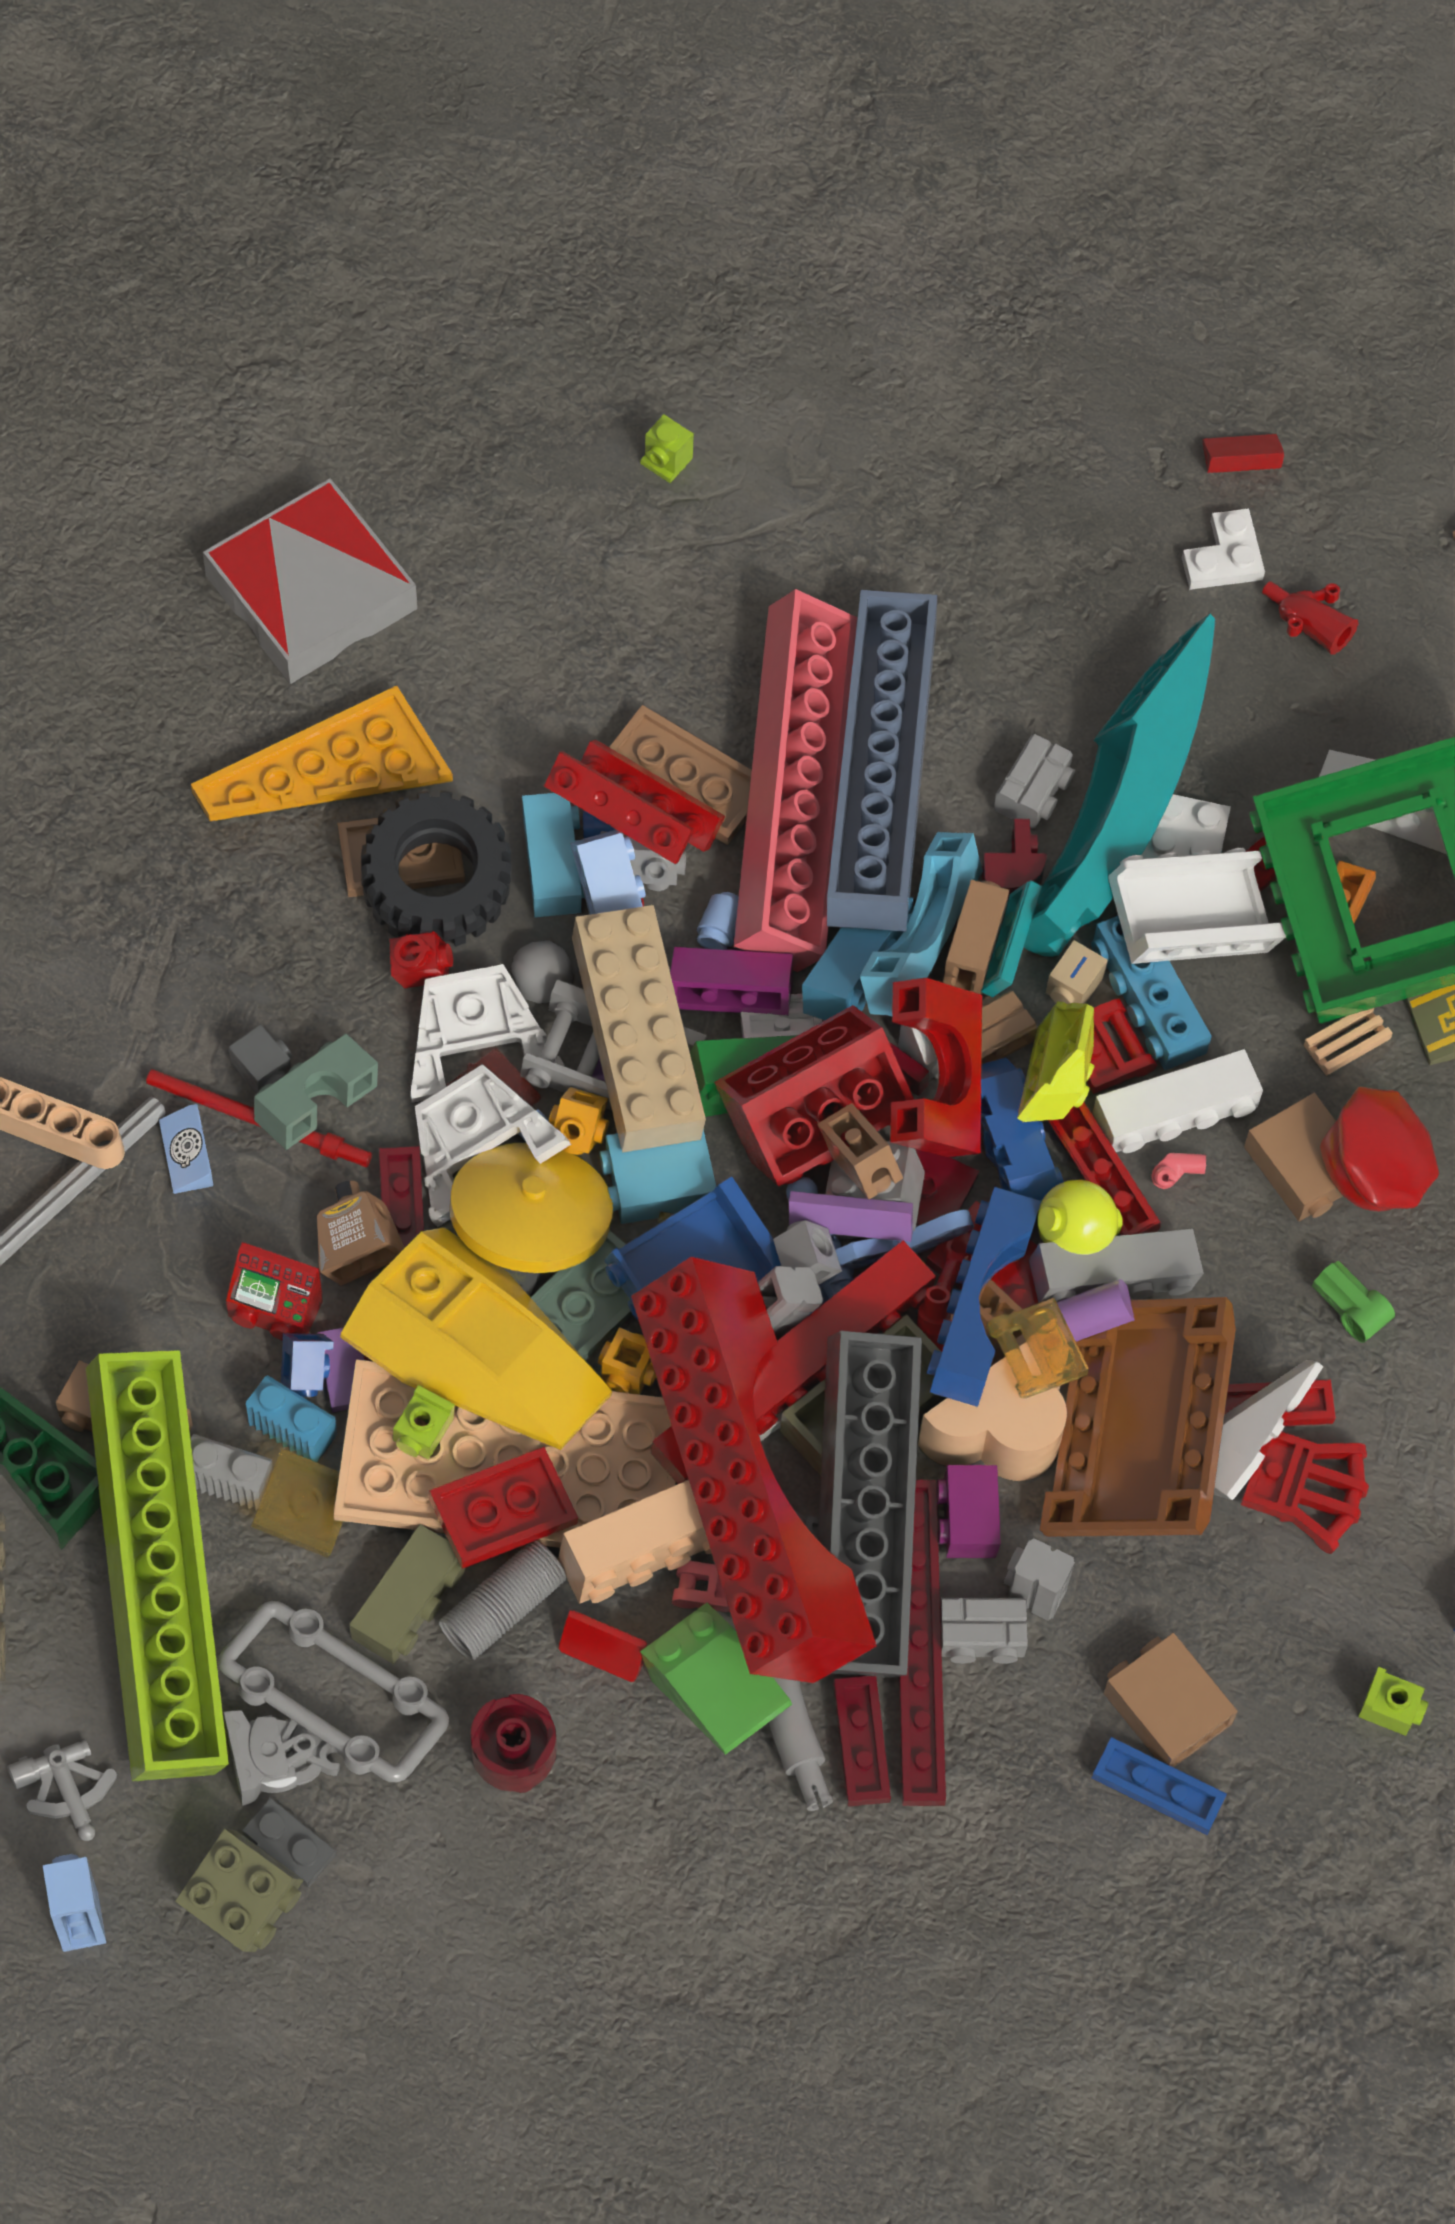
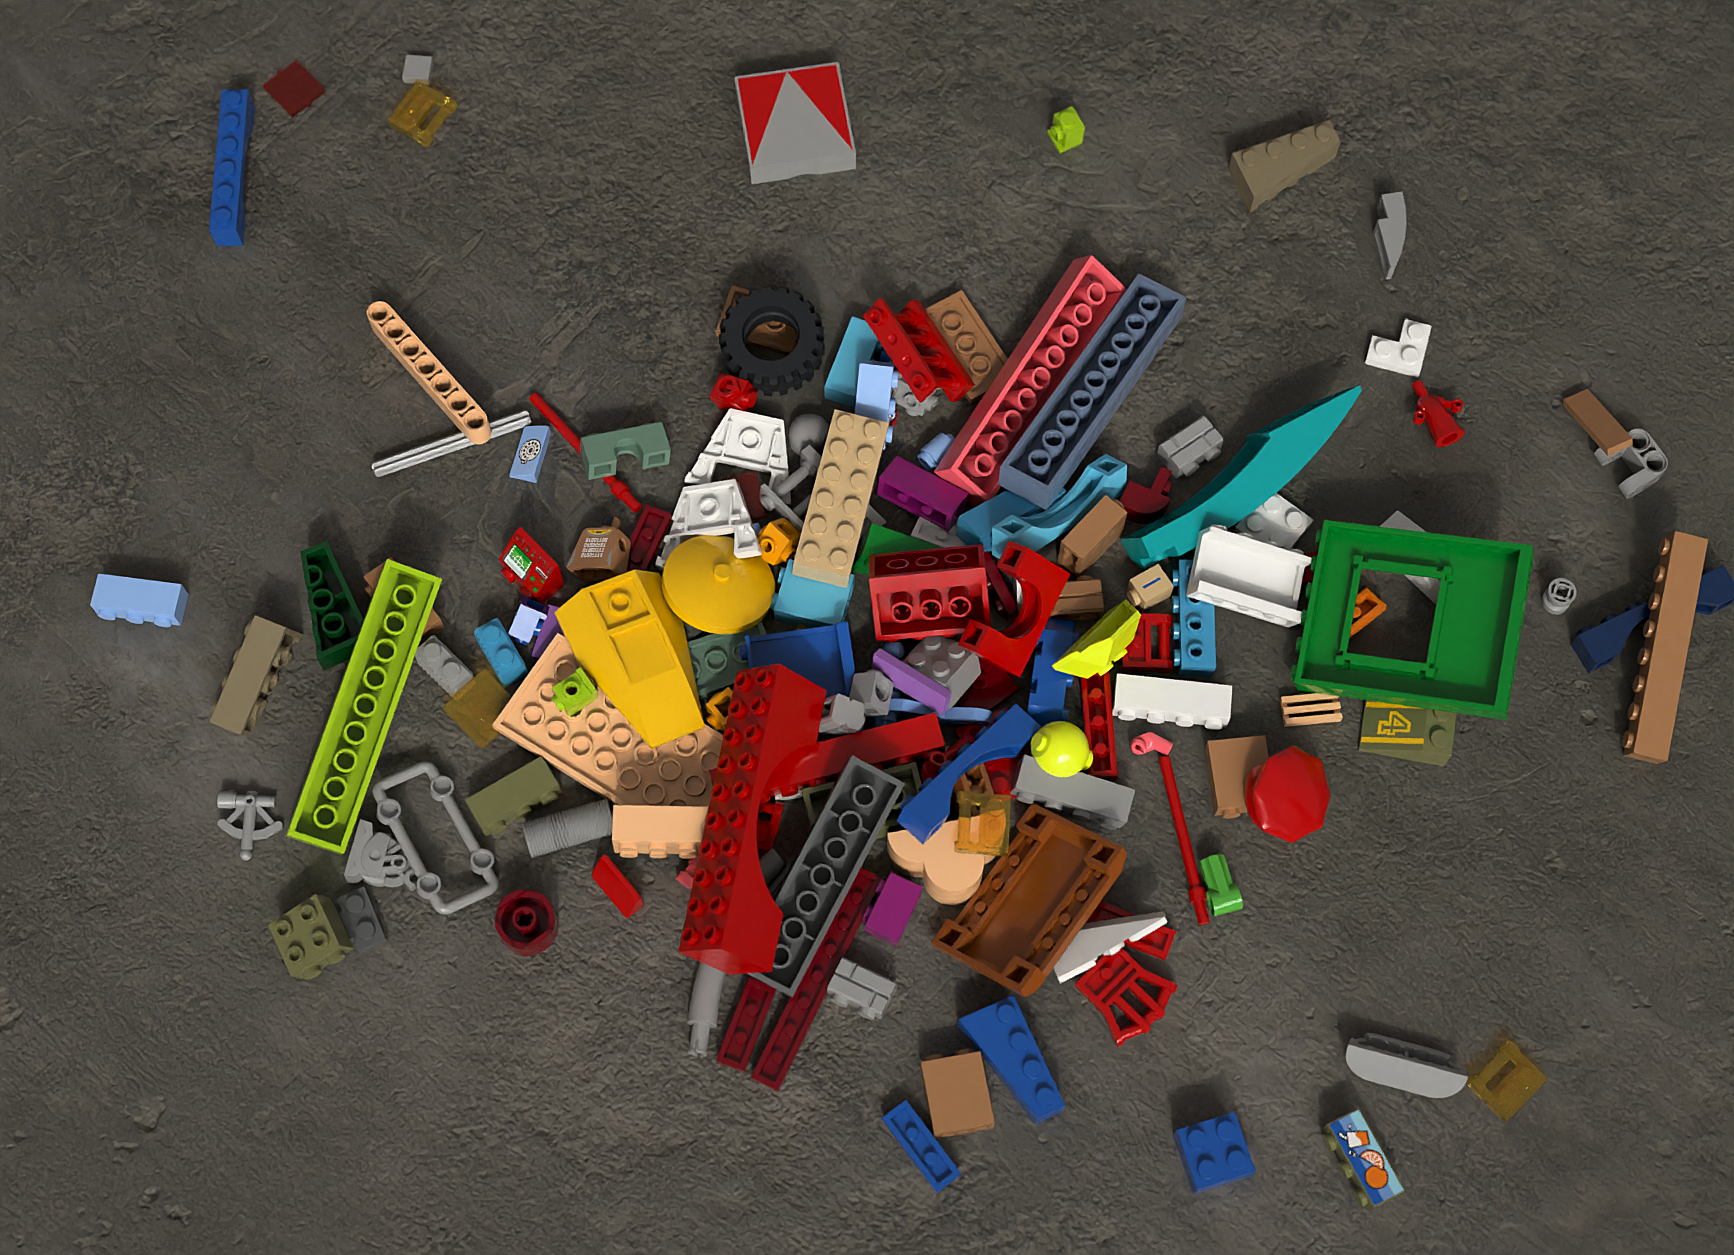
camera: 30 degrees right, 5 degrees up
(74, 1902) = (203, 896): light blue brick -> none
(260, 1058) = (603, 414): dark grey brick -> none
(347, 756) = (761, 245): light orange wing -> none
(503, 1507) = (595, 769): red plate -> none
(709, 1681) = (660, 930): bright green slope -> none
(868, 1157) = (931, 647): medium nougat brick -> none
(958, 382) = (1281, 162): none -> dark tan wedge
(1011, 938) = (1116, 544): teal tile -> none
(1039, 1577) = (912, 974): light grey brick -> none
(1097, 1309) = (1037, 815): medium lavender brick -> none
(1139, 412) = (1390, 230): none -> light grey slope
(1217, 1623) = (1014, 1057): none -> blue wedge
(1243, 453) = (1448, 287): red slope -> none
(1329, 1323) = (1196, 894): none -> red bar
(1383, 1711) = (1092, 1165): lime brick -> none

